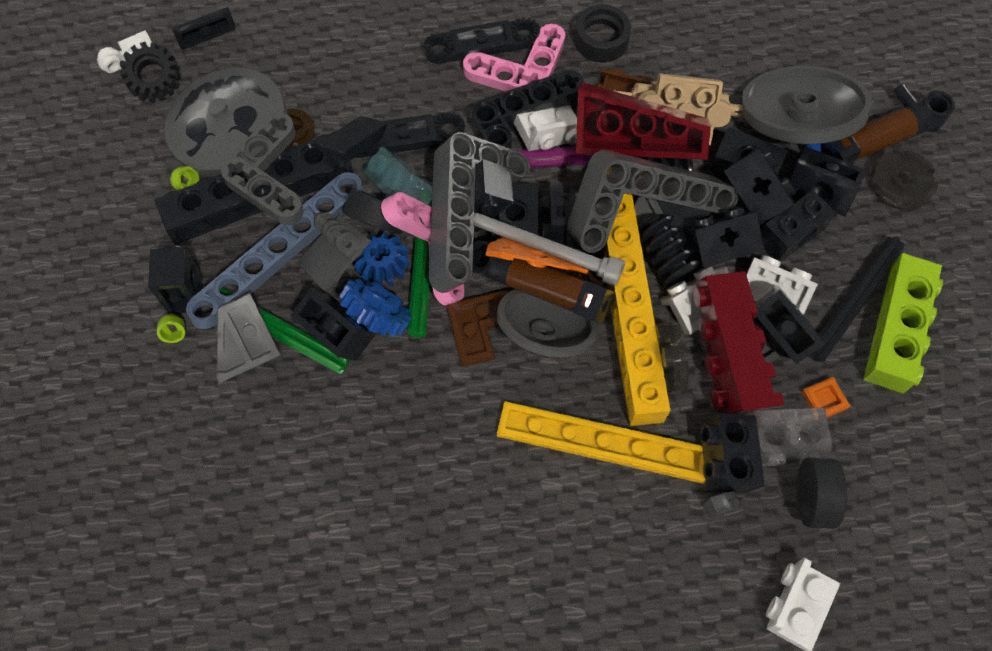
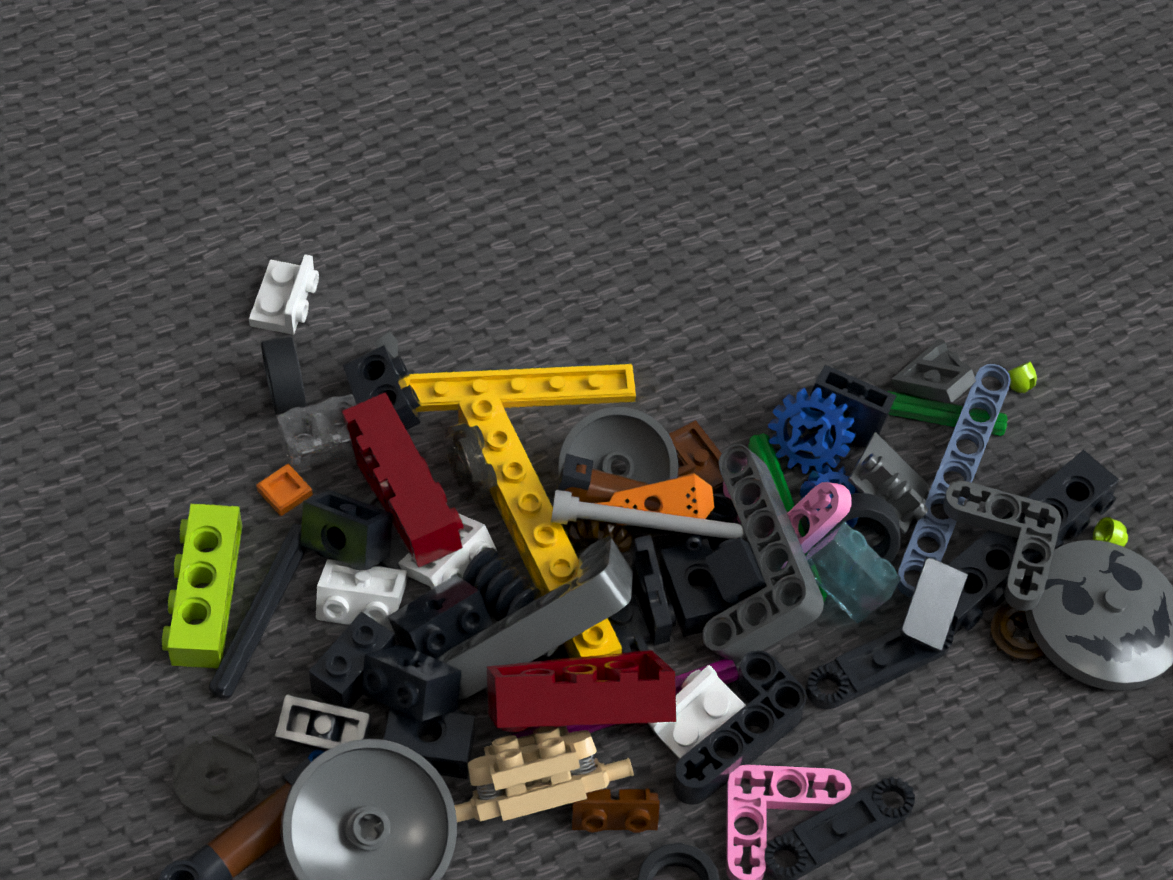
camera: 160 degrees right, 10 degrees down
(174, 278) = (1037, 400): black brick -> none

